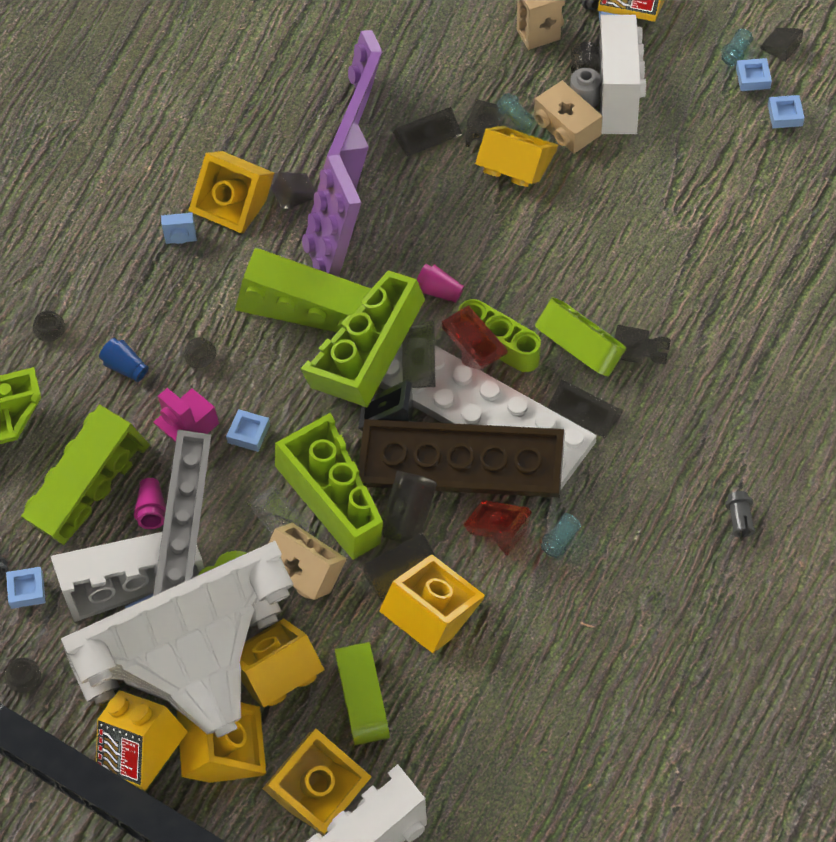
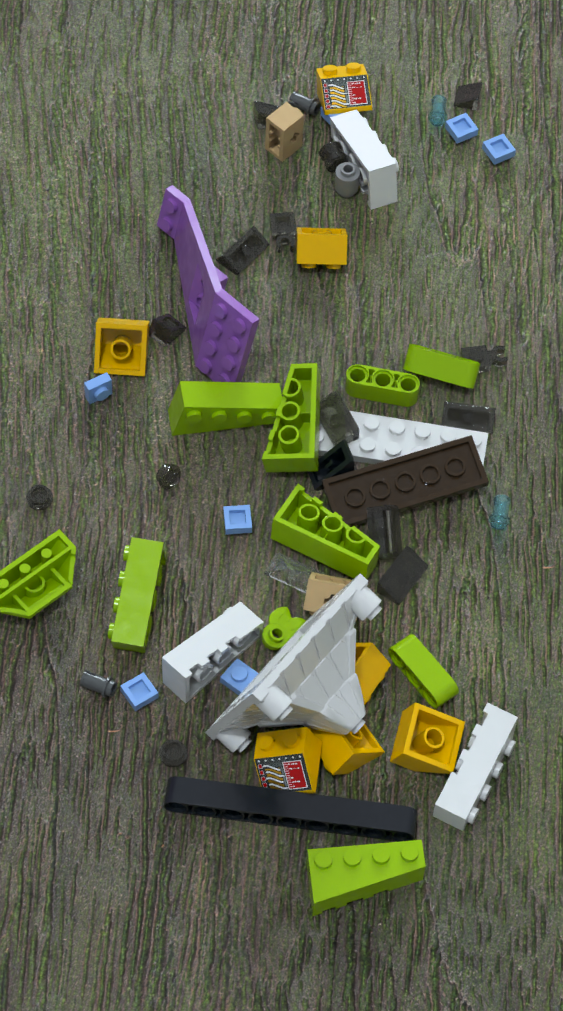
camera: 30 degrees left, 0 degrees up
(122, 359) = (113, 502): blue cone -> none
(150, 504) = (196, 598): dark pink cone -> none
(182, 510) = (237, 598): light grey plate -> none
(185, 413) = (189, 525): dark pink brick -> none
(431, 603) = (438, 591): yellow slope -> none
(439, 284) = (325, 363): dark pink cone -> none
(473, 338) = (374, 394): clear red slope -> none
(499, 521) = (455, 517): clear red slope -> none
(510, 106) = (300, 211): clear light blue pin -> none
(567, 117) = (344, 204): tan brick -> none

